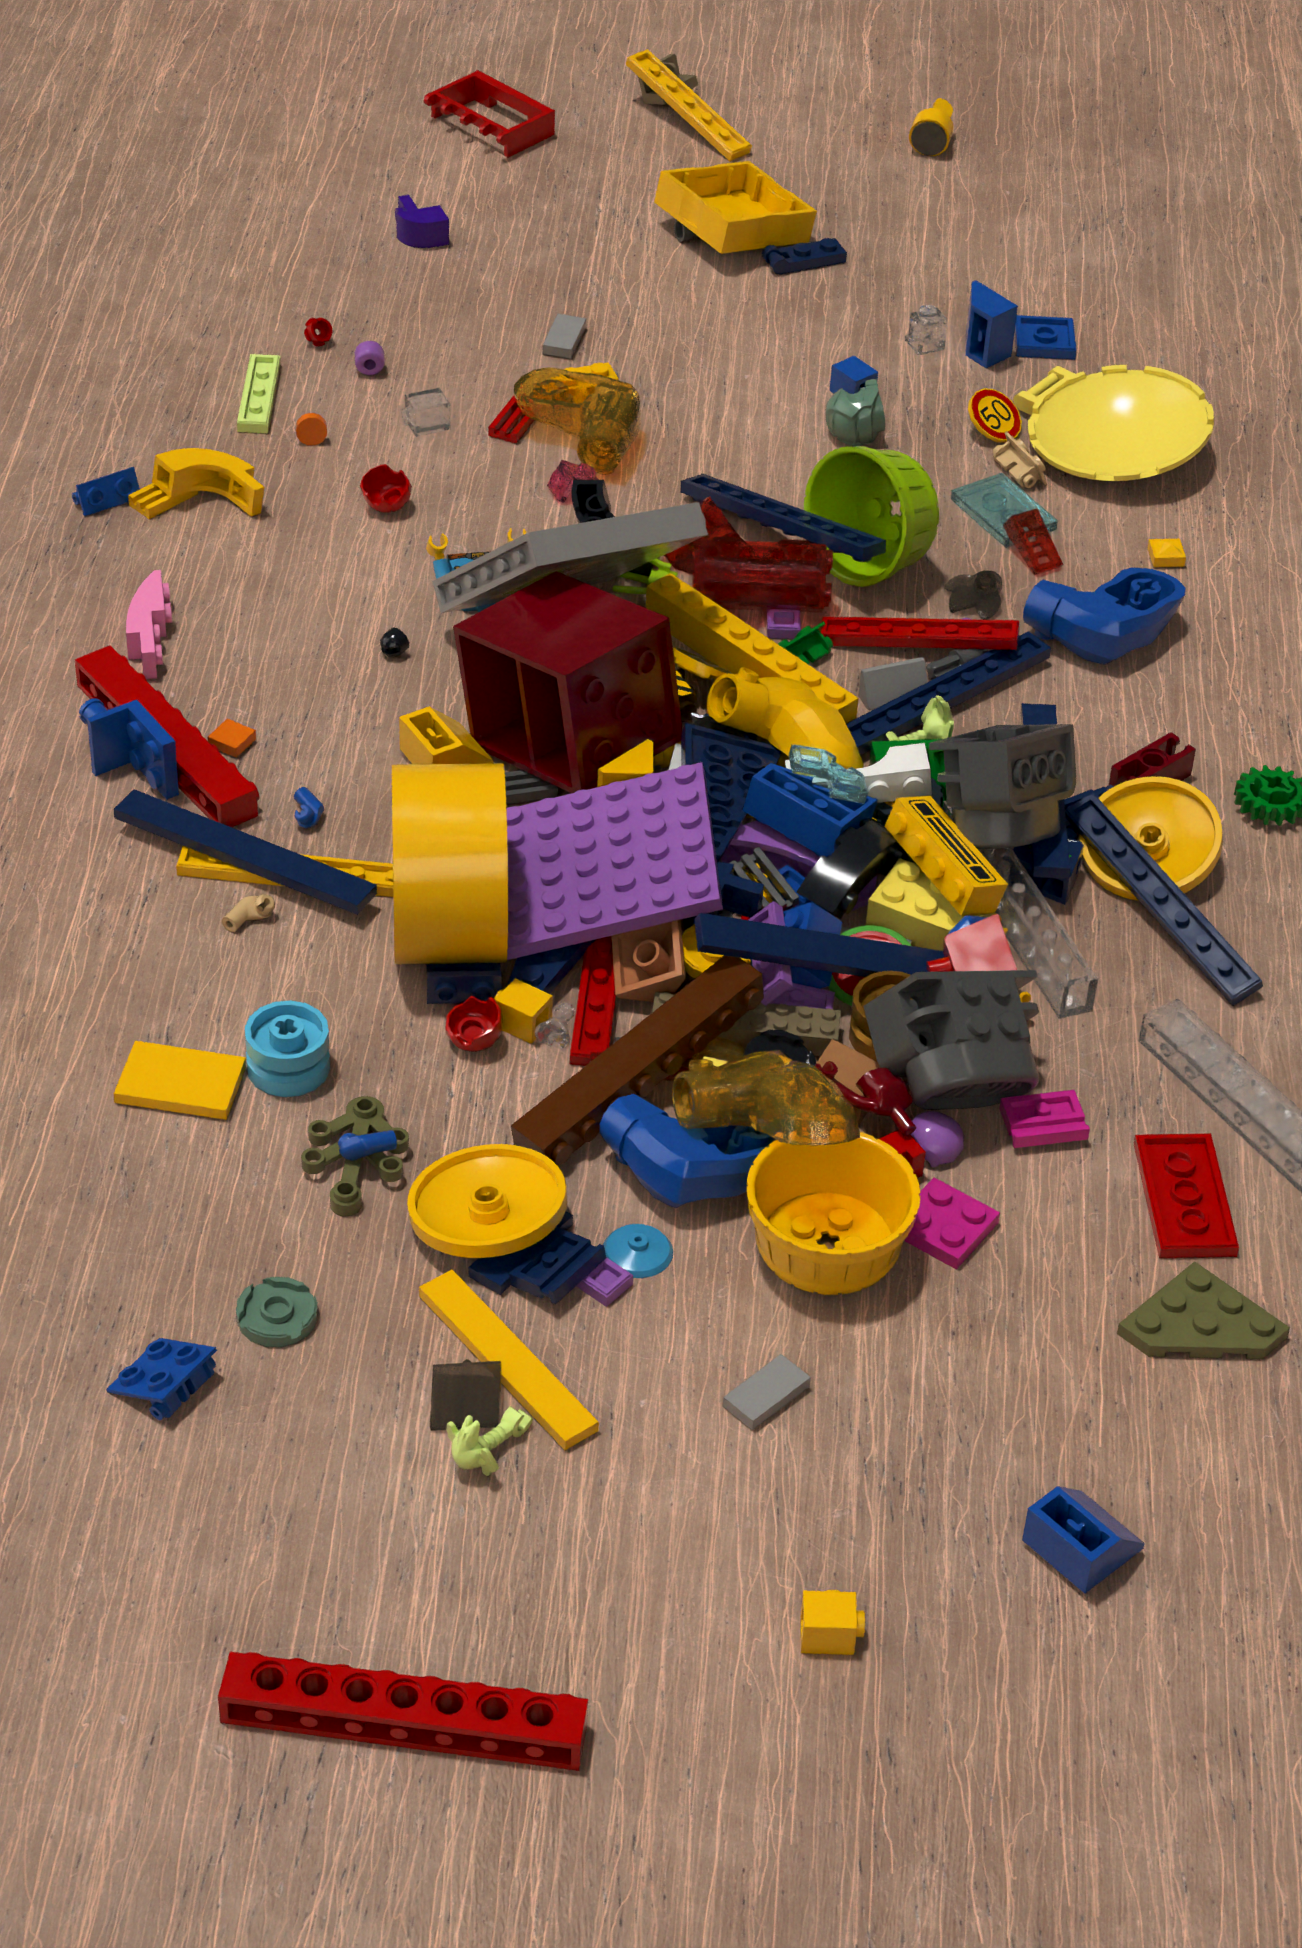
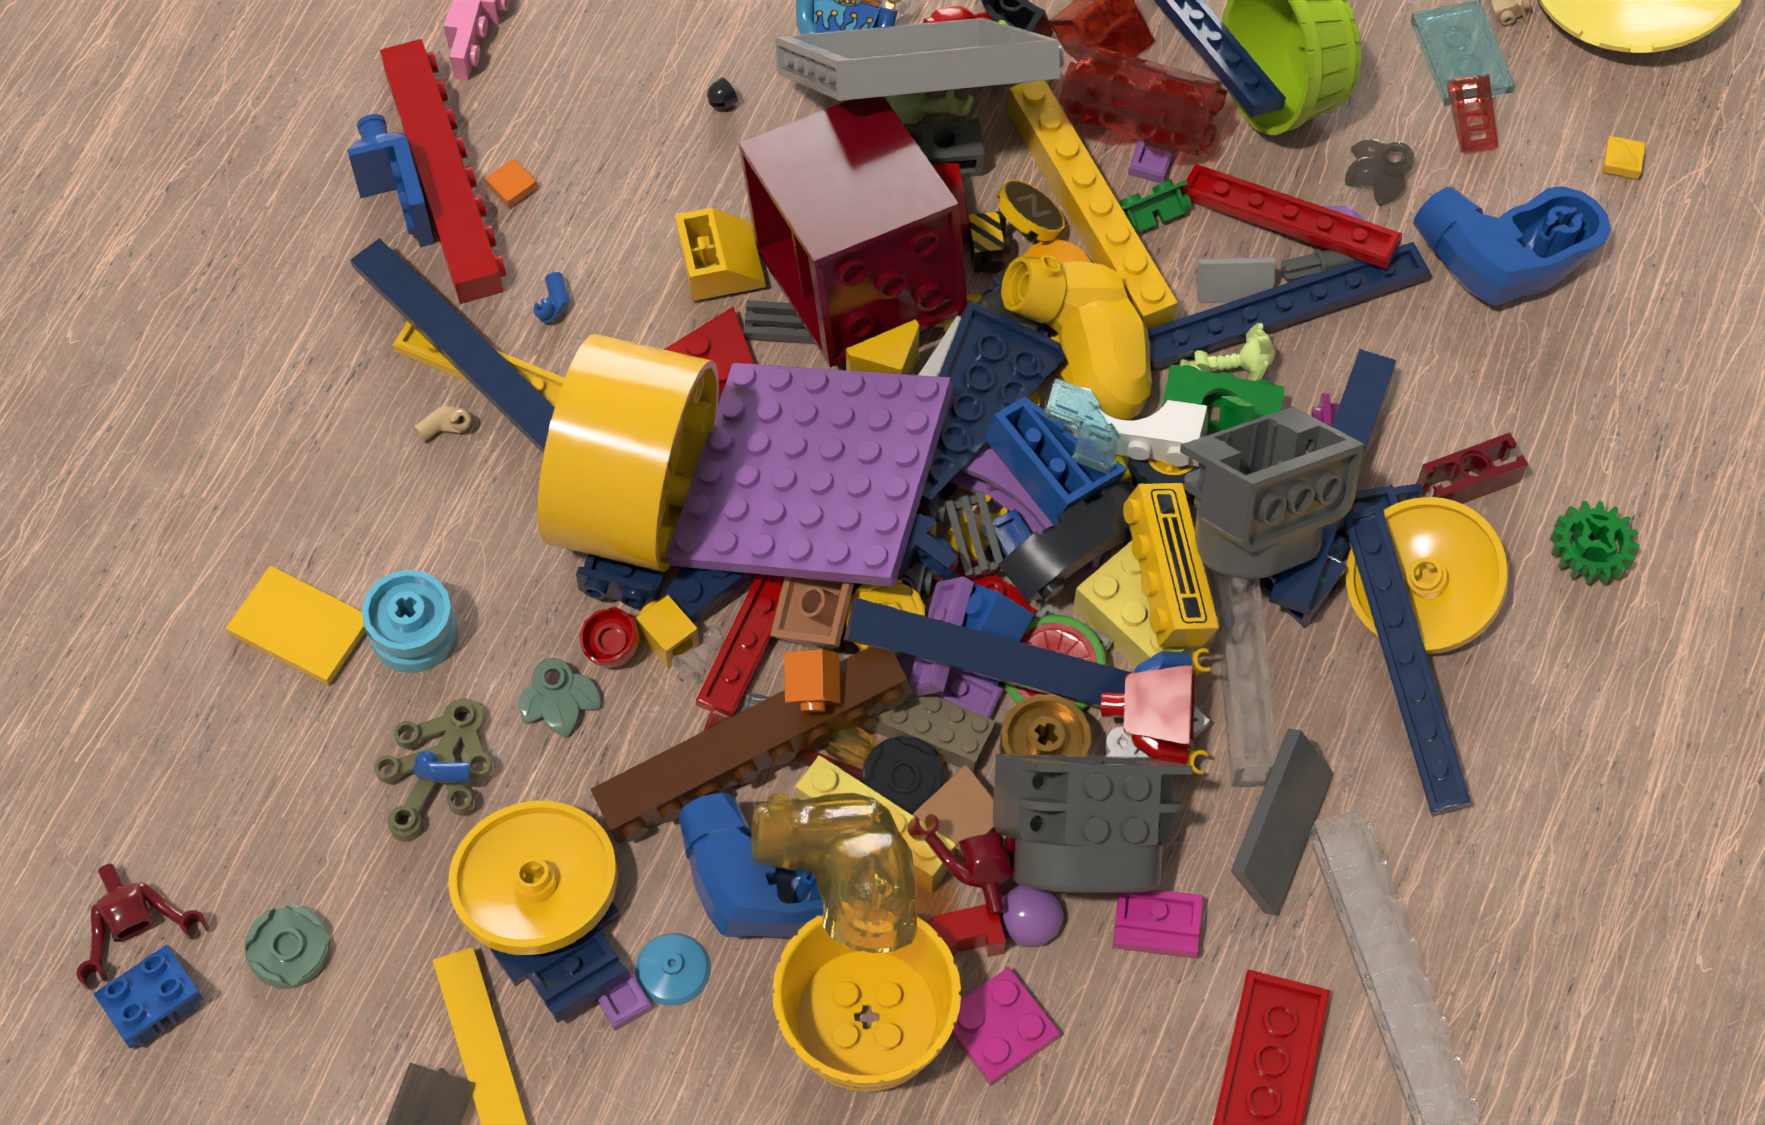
camera: 20 degrees right, 20 degrees up
(118, 1318) = (127, 916): none -> dark red piece
(447, 1082) = (558, 702): none -> sand green plate
(683, 982) = (812, 679): none -> orange brick
(1116, 1022) = (1282, 822): none -> dark grey tile

